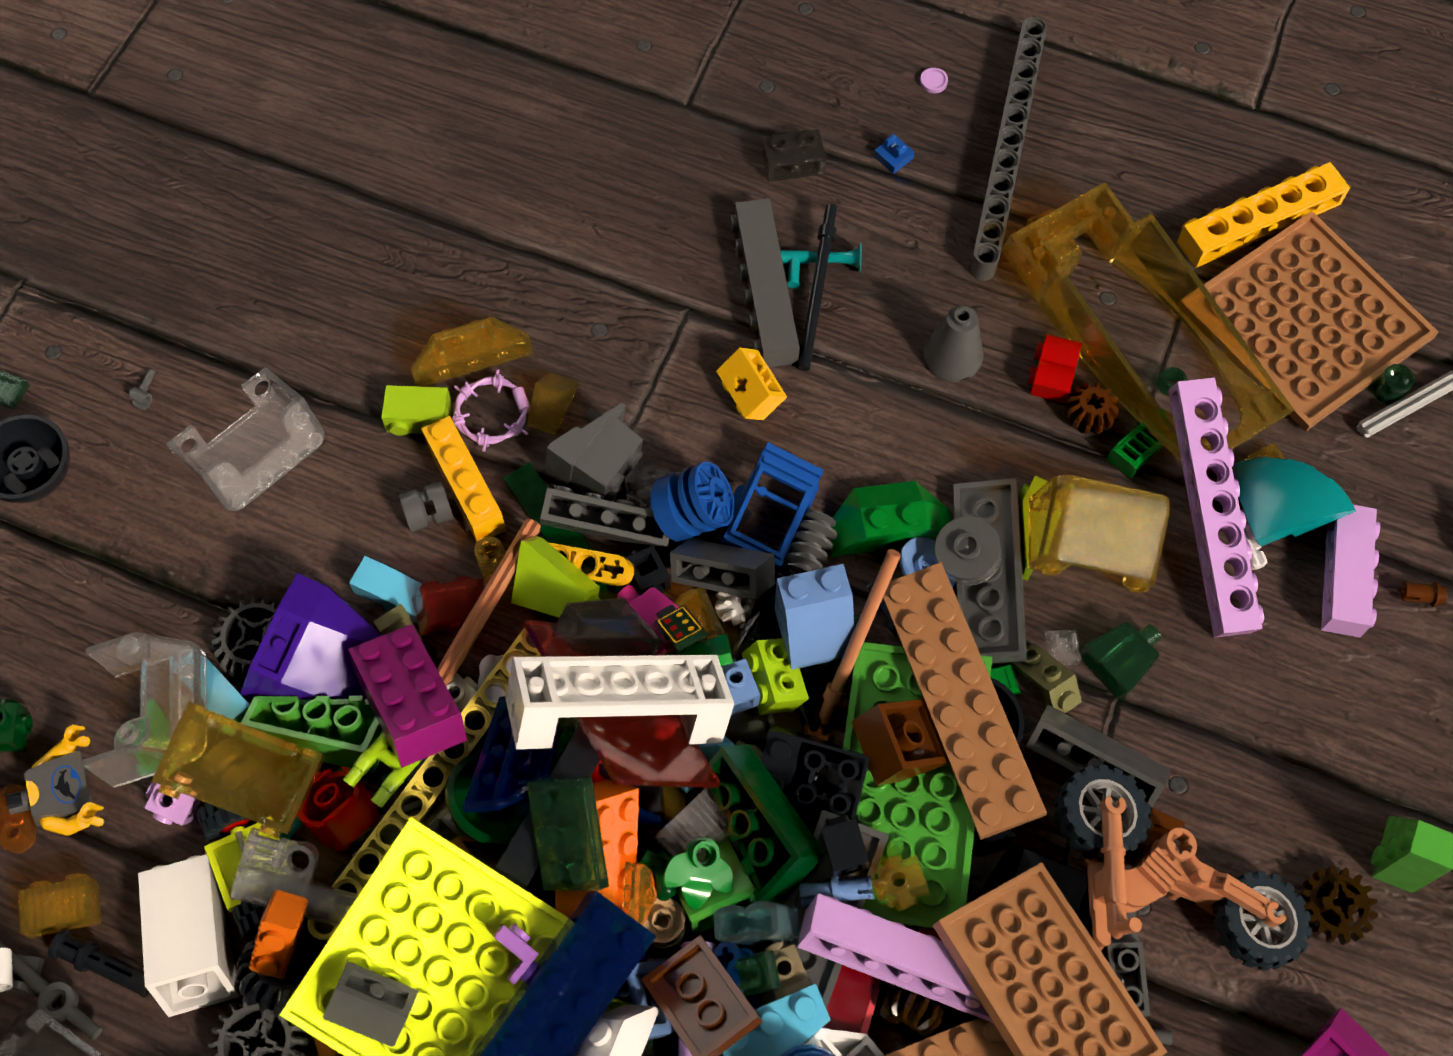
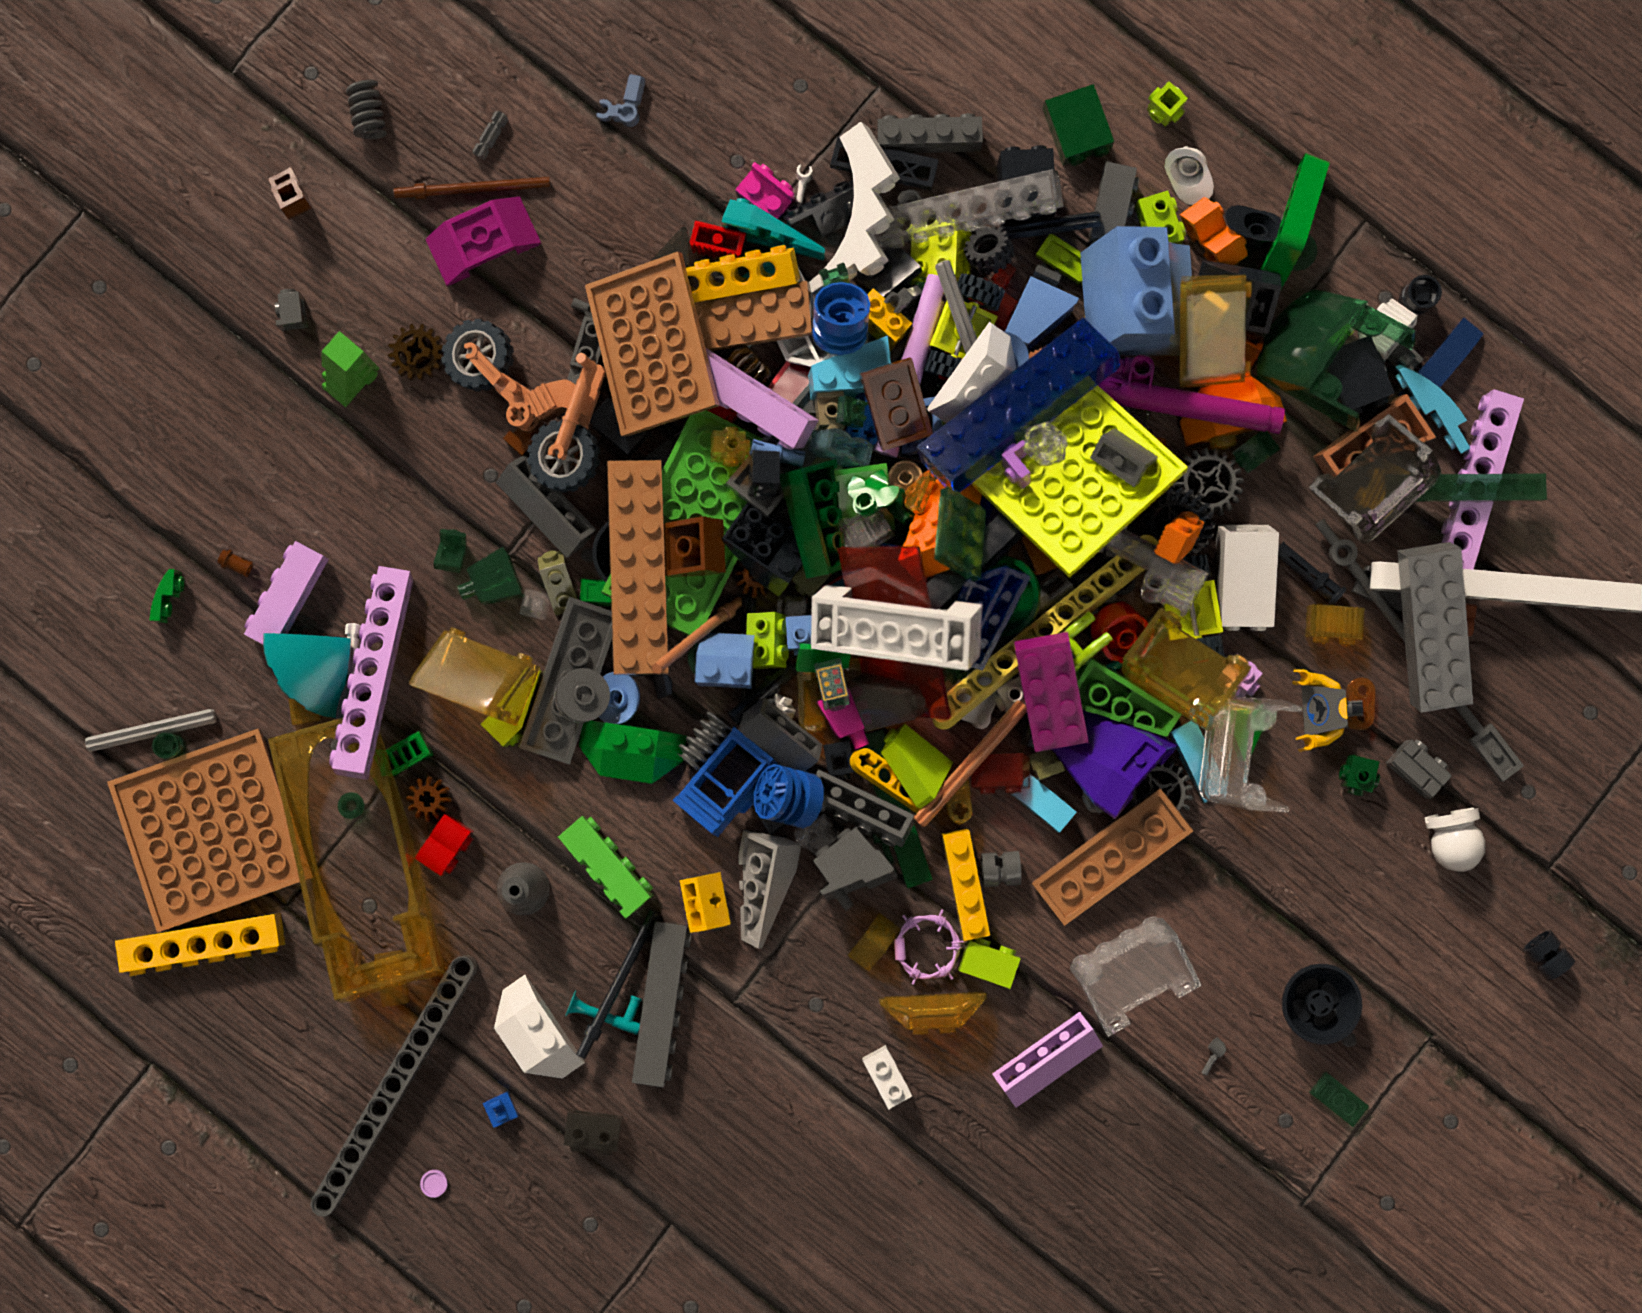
camera: 165 degrees left, 20 degrees up
(298, 544) = (1112, 856): none -> medium nougat plate
(329, 332) = (1047, 1059): none -> lavender brick
(482, 988) = (1045, 444): none -> clear brick
(501, 275) = (887, 1077): none -> white brick
(689, 424) = (767, 873): none -> light grey wedge
(870, 389) = (606, 866): none -> bright green wedge
(889, 227) = (534, 1033): none -> white wedge
(1186, 675) = (451, 550): none -> clear green bracket

